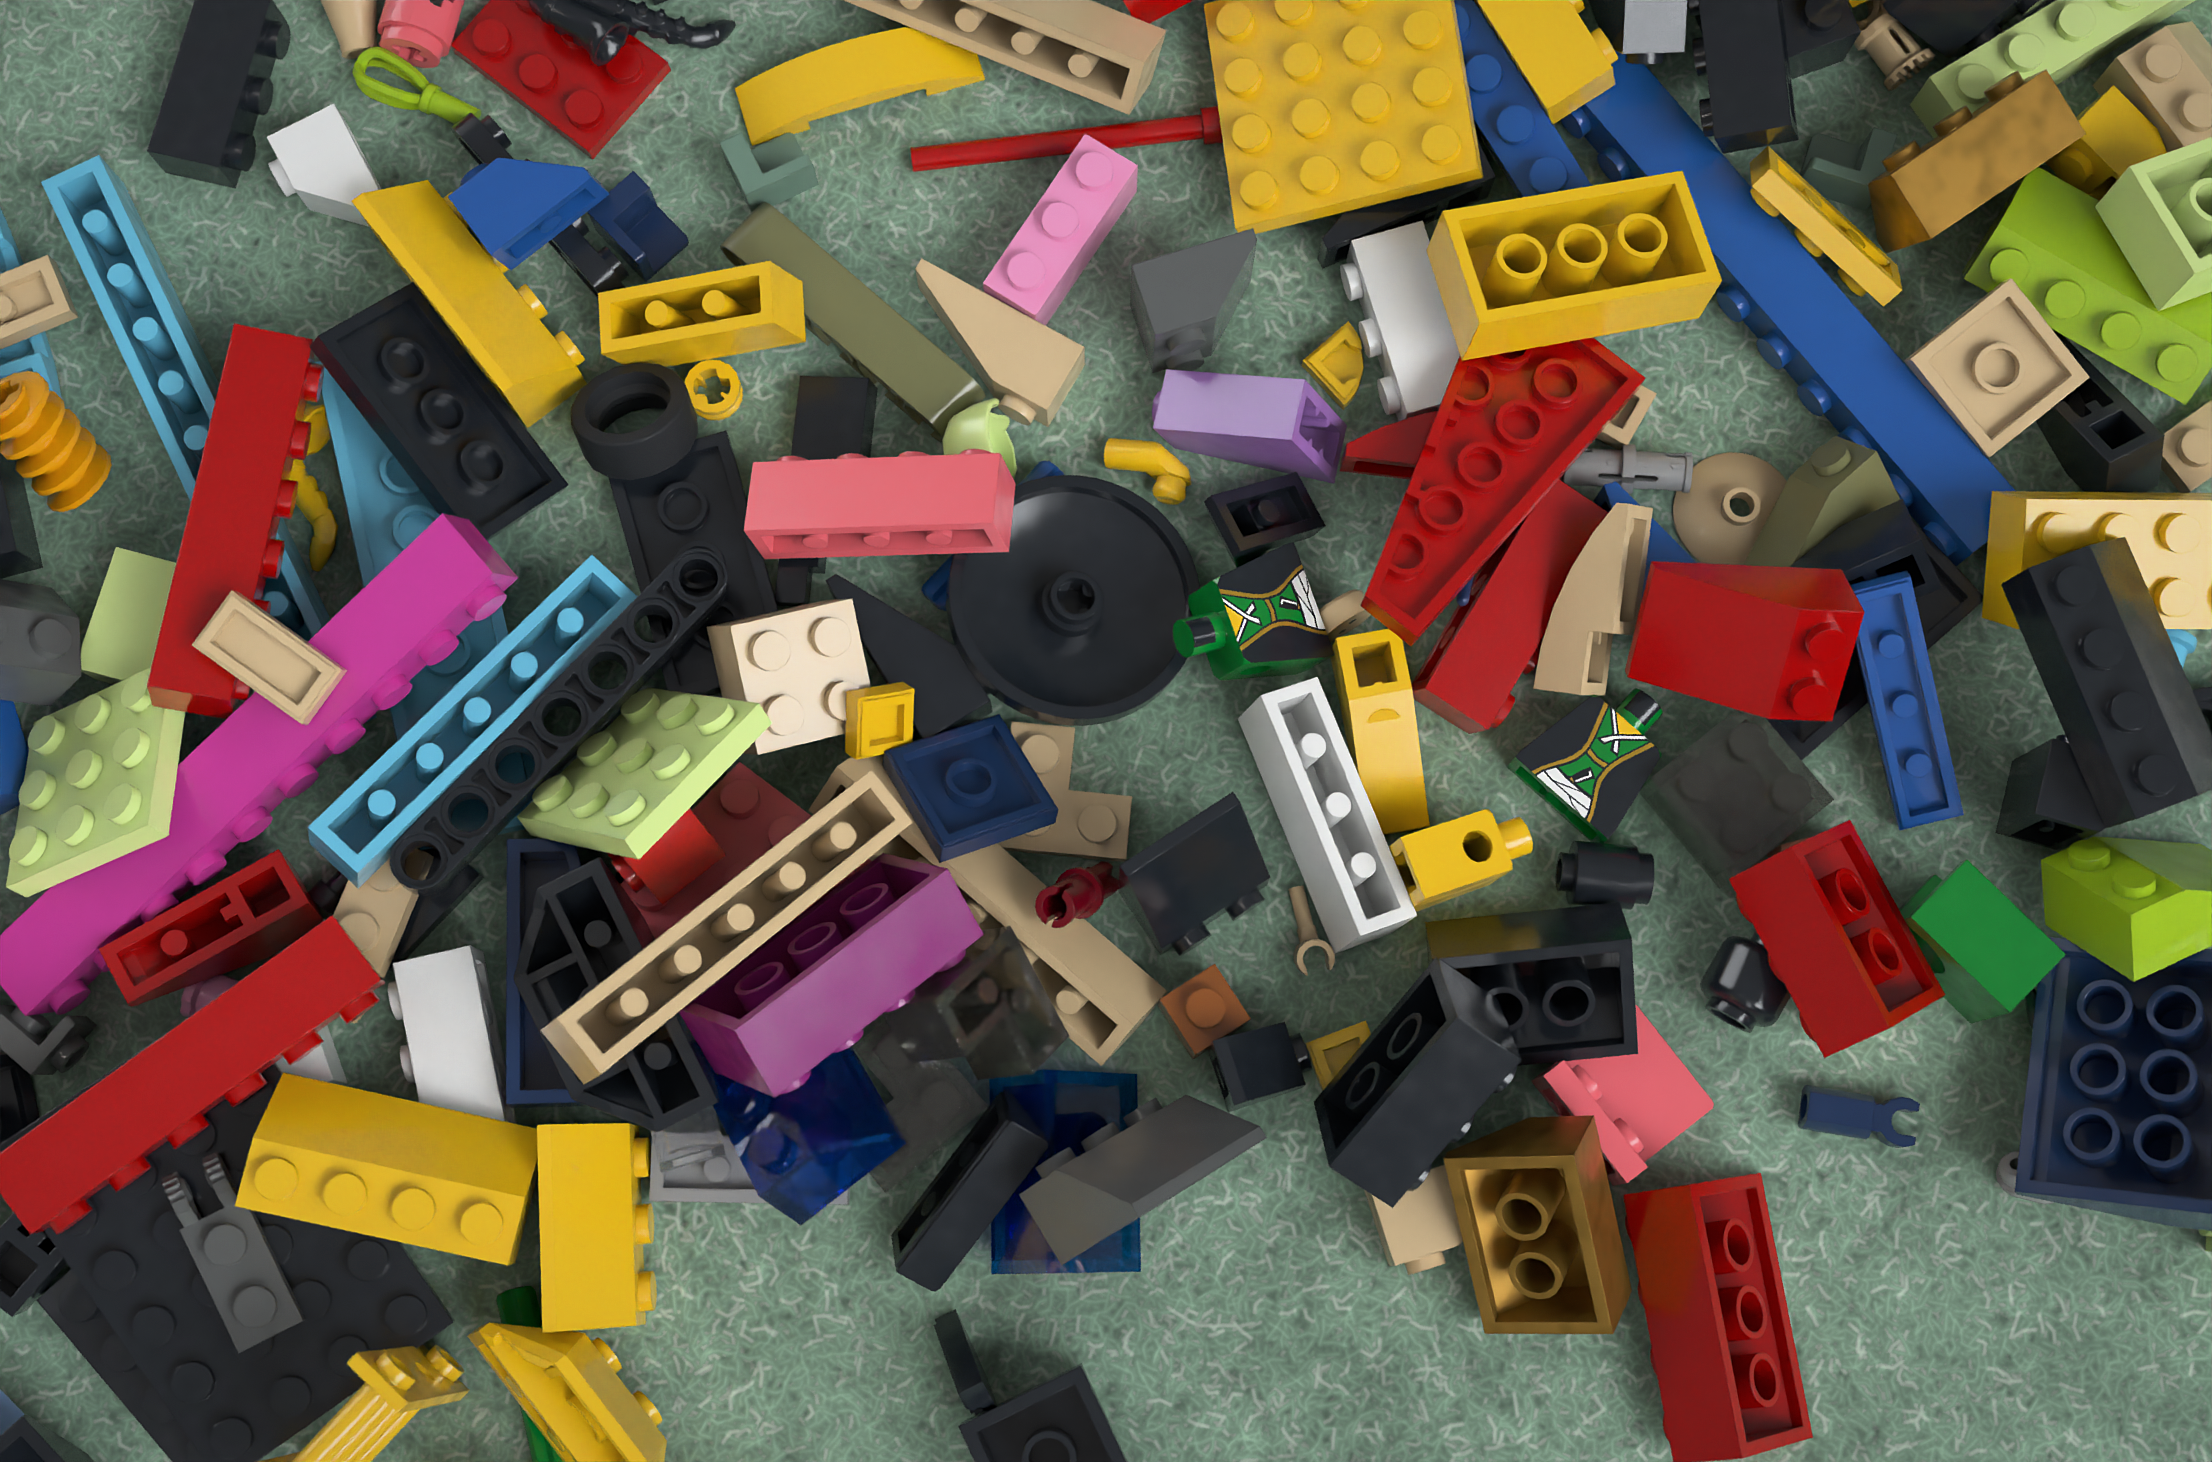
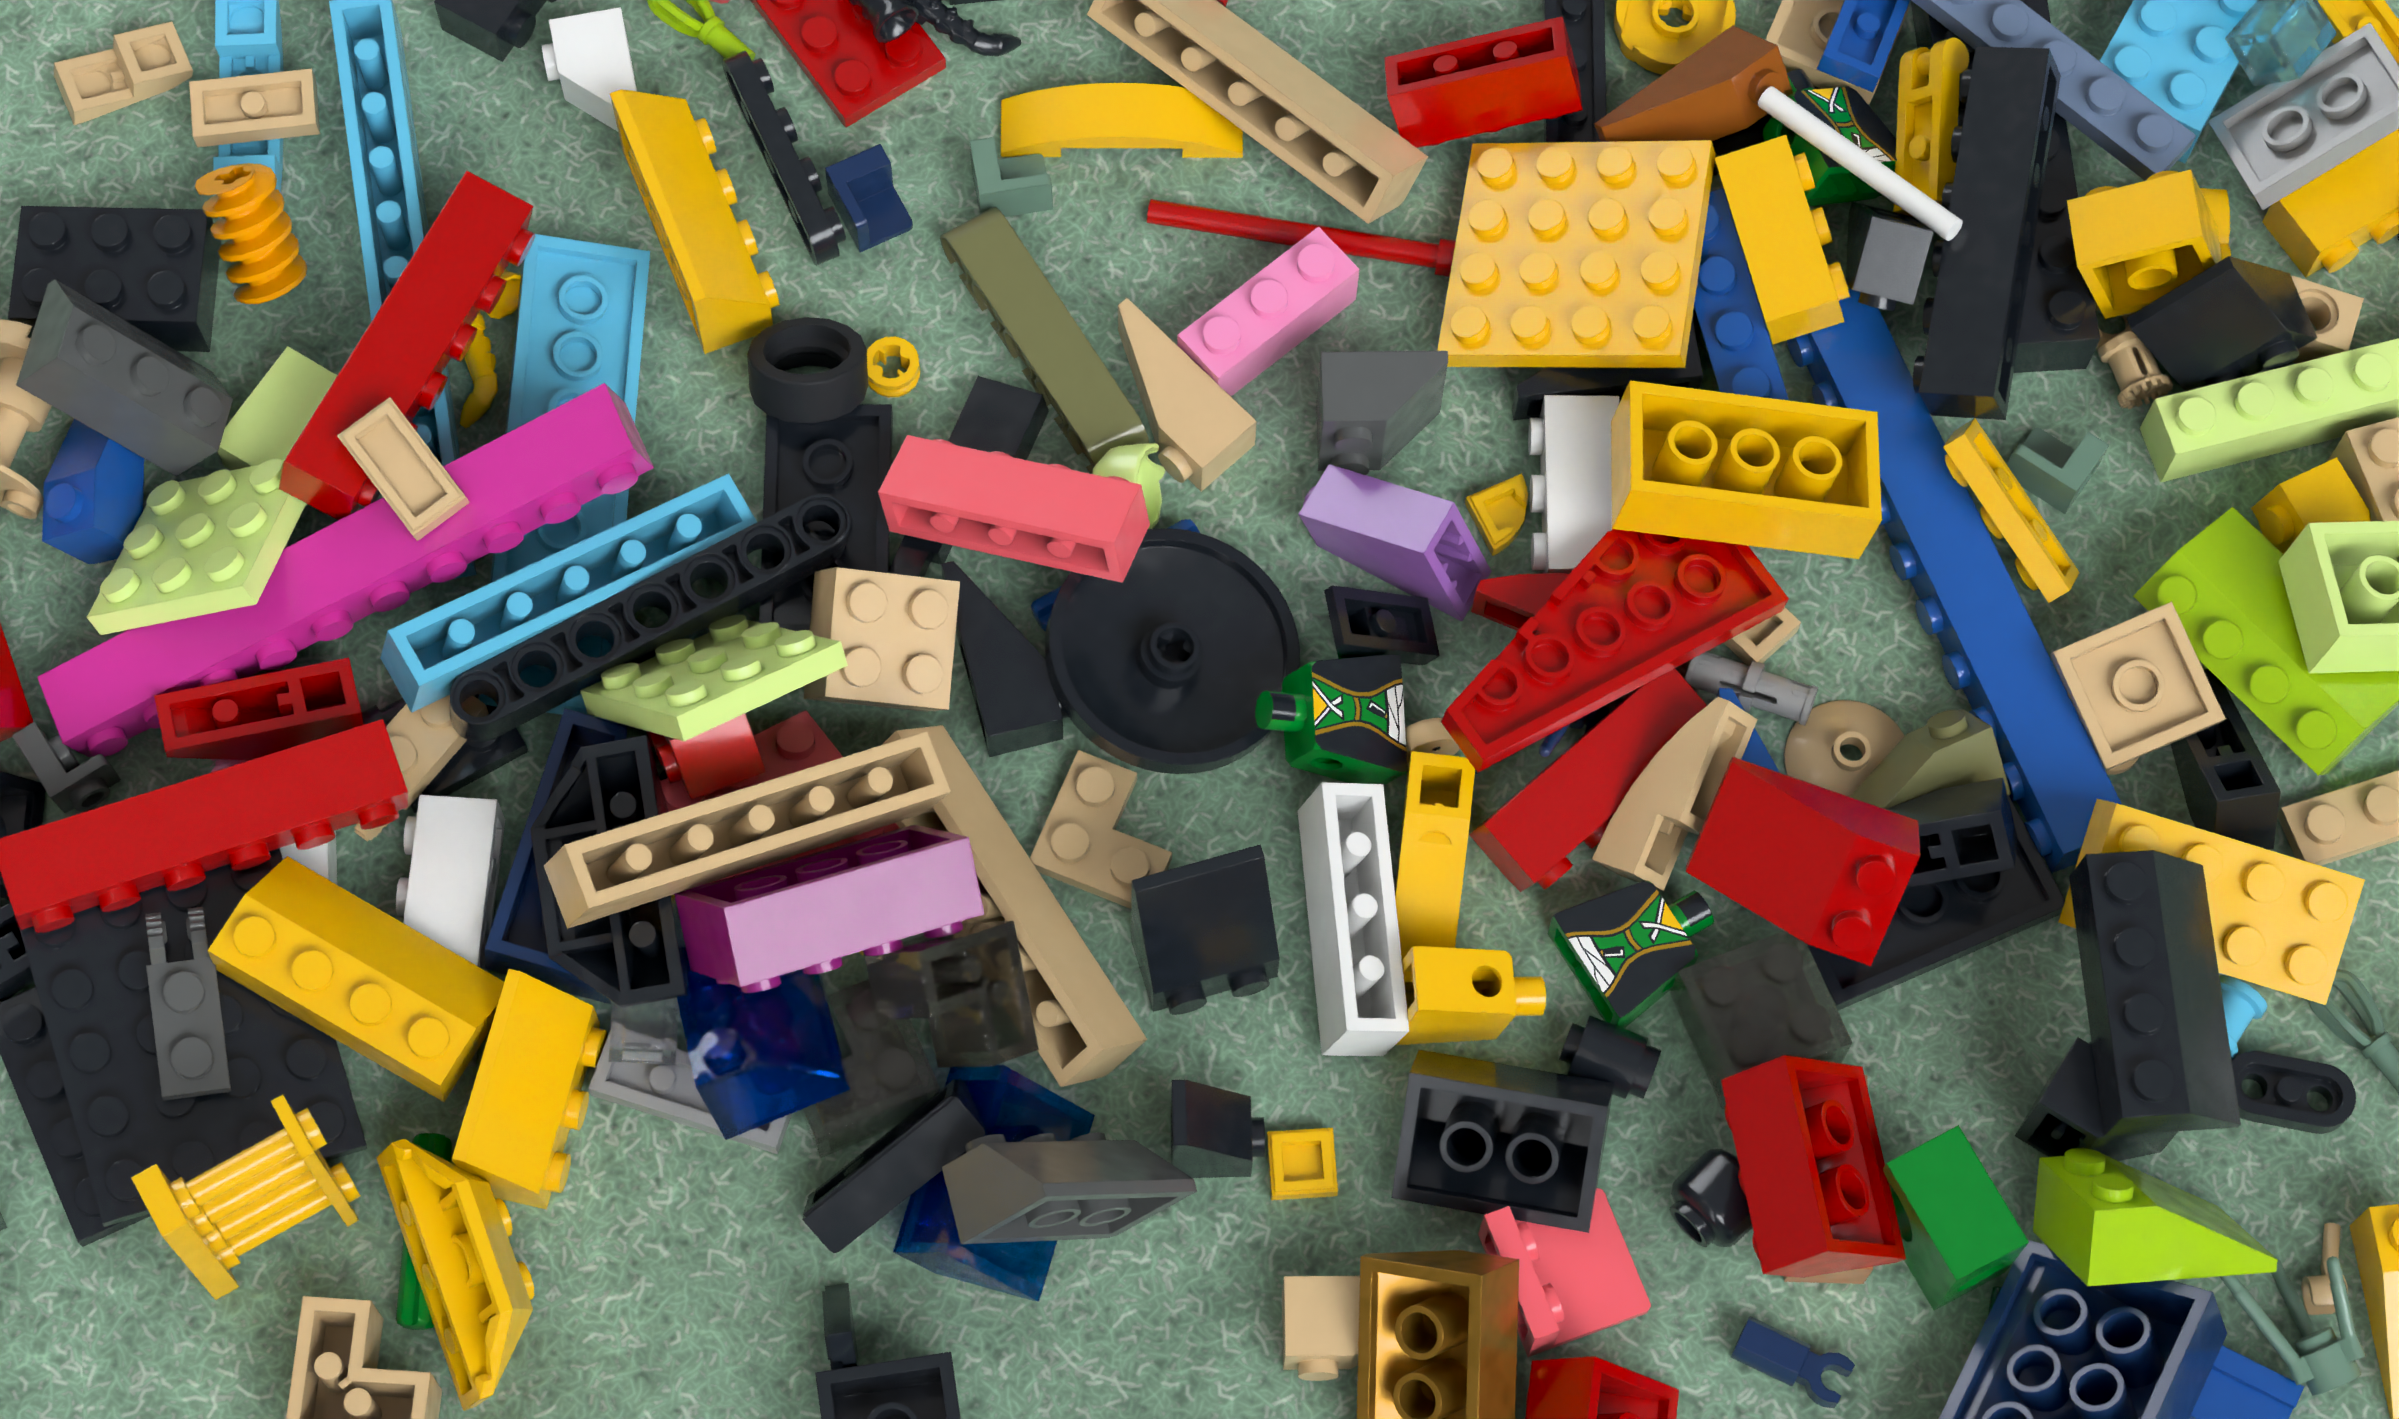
camera: 15 degrees right, 10 degrees down
(438, 413) = (628, 307): black plate -> none
(523, 204) = (769, 143): blue slope -> none
(703, 316) = (903, 291): yellow brick -> none
(878, 719) = (950, 702): yellow tile -> none
(969, 787) = (1017, 790): dark blue tile -> none
(1076, 894) = (1087, 919): dark red axle -> none
(1155, 461) = (1293, 548): yellow arm -> none
(1203, 1011) = (1170, 1056): dark orange brick -> none
(1307, 931) = (1302, 1028): tan hand -> none
(1416, 1083) = (1357, 1182): black brick -> none
(1904, 703) = (1949, 972): blue tile -> none
(1970, 159) = (2167, 483): pearl gold slope -> none

